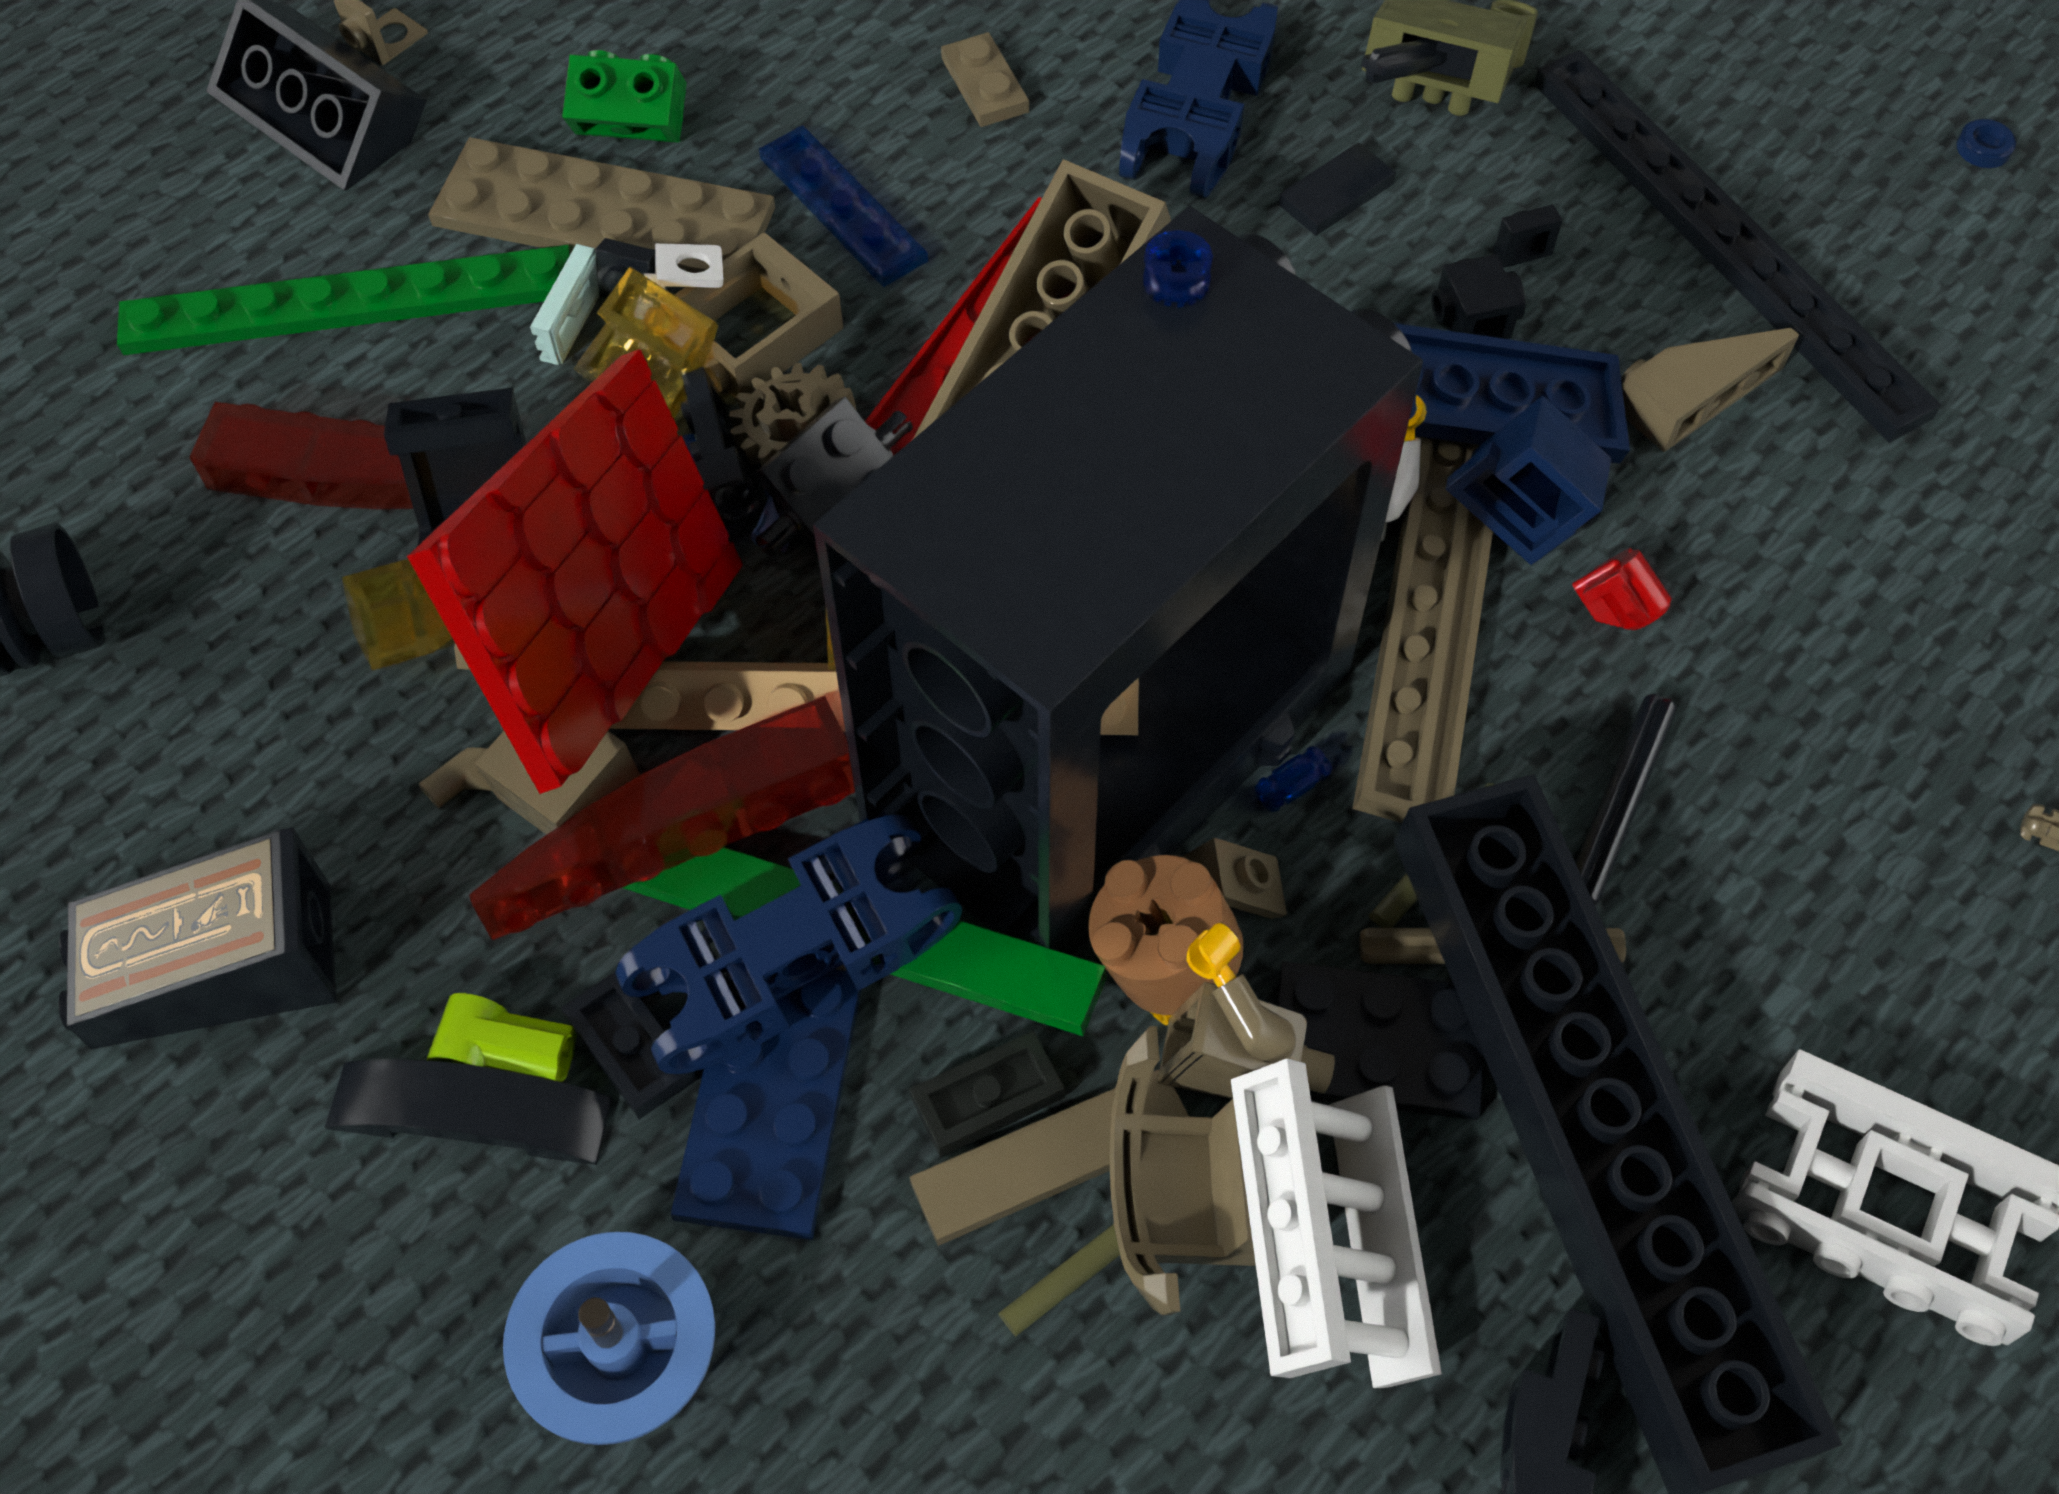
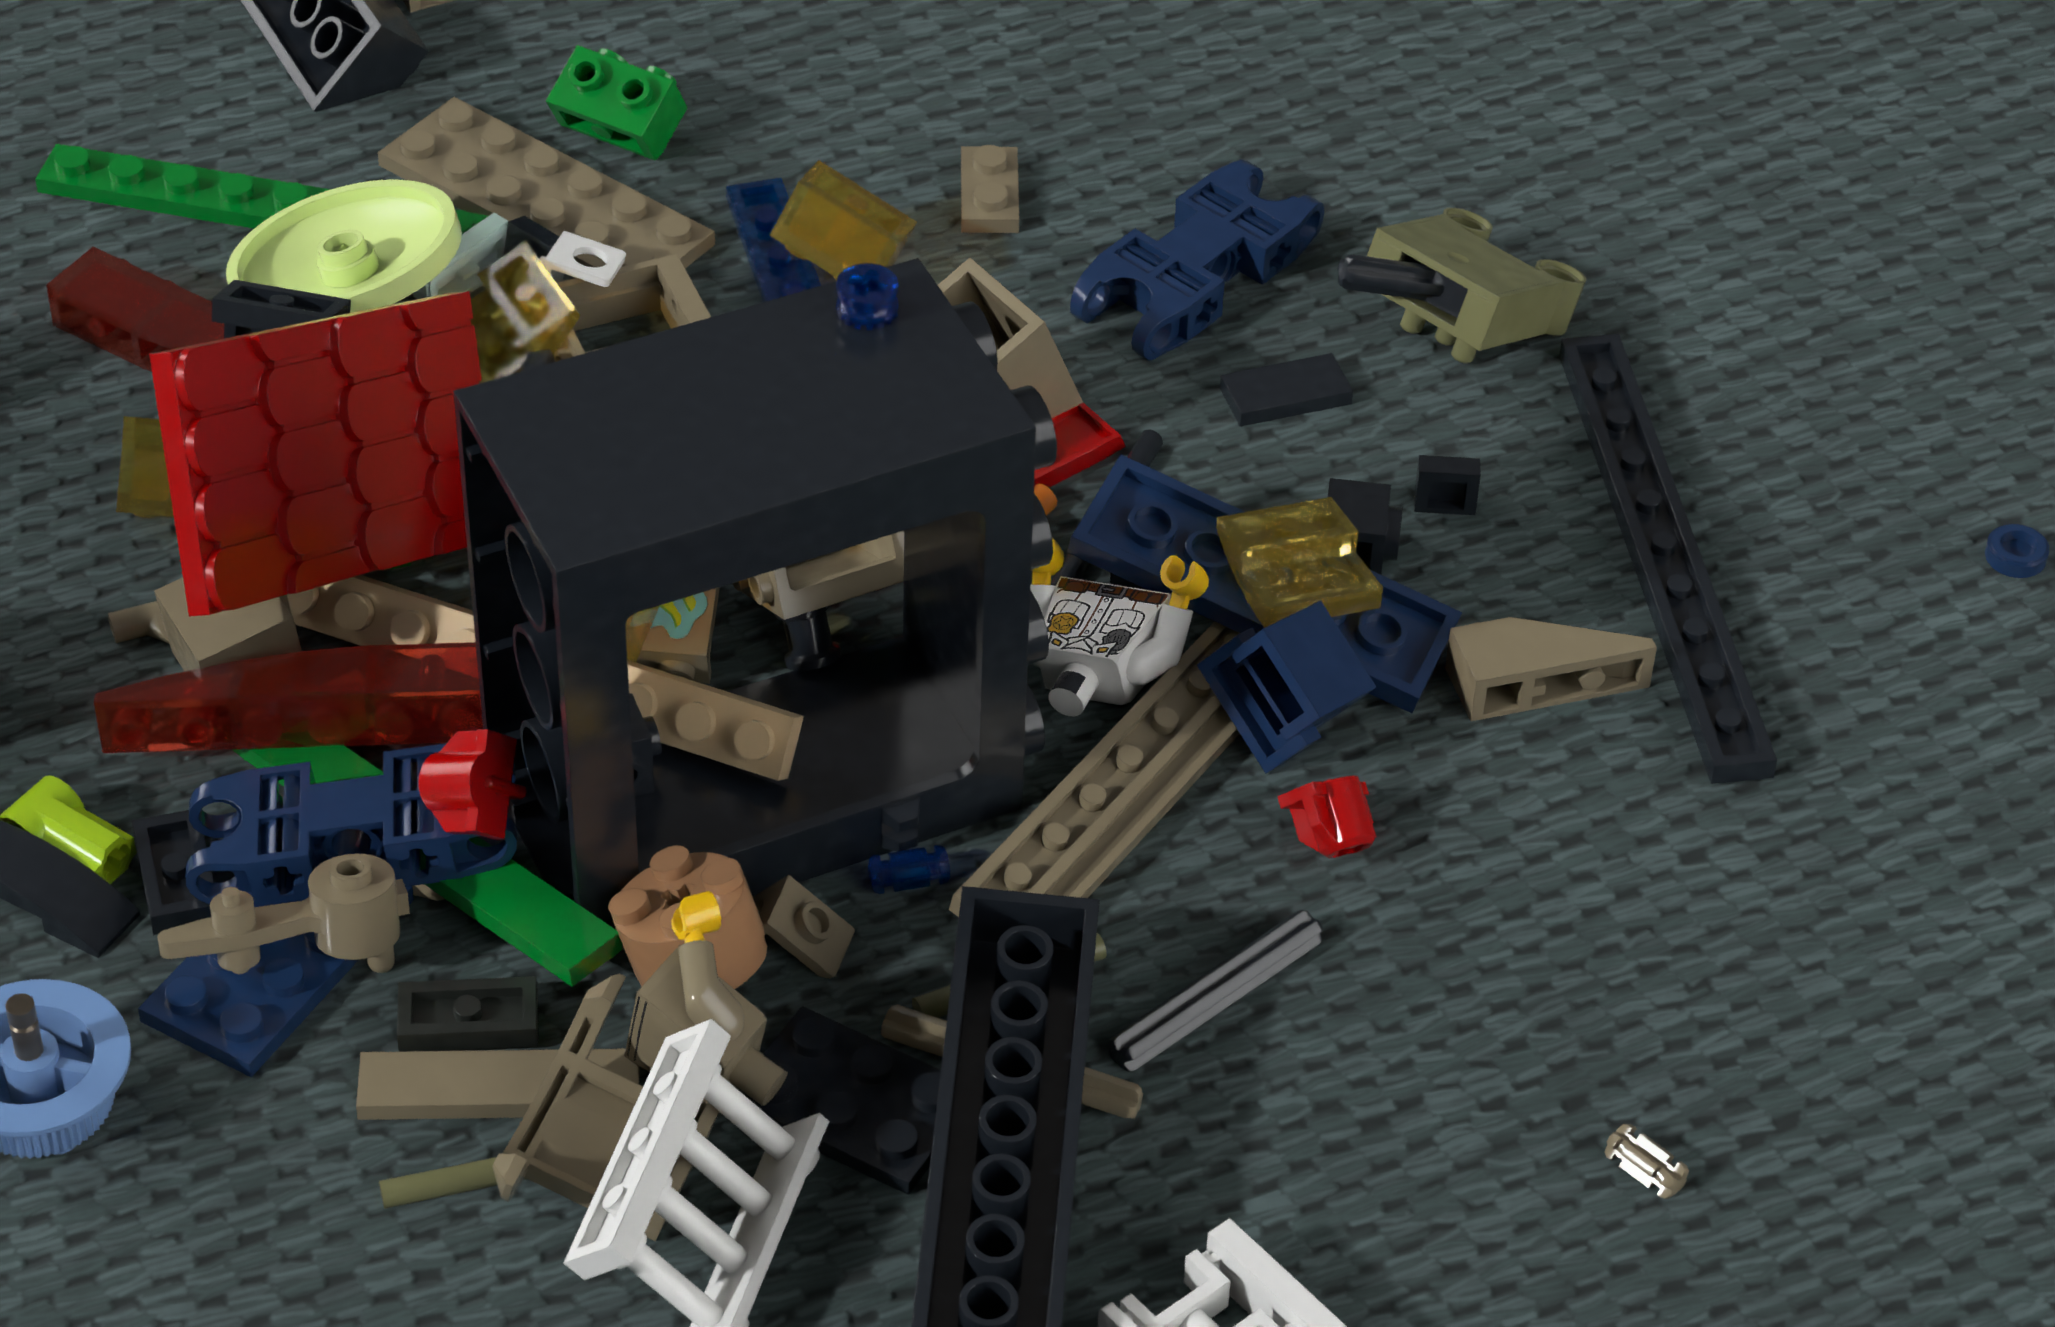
camera: 20 degrees right, 15 degrees down
(464, 324) = (354, 243): none -> yellowish green dish
(835, 1044) = (349, 909): none -> dark tan piece
(897, 160) = (840, 223): none -> clear yellow brick
(909, 878) = (471, 783): none -> red piece
(1482, 361) = (1296, 558): none -> clear yellow slope

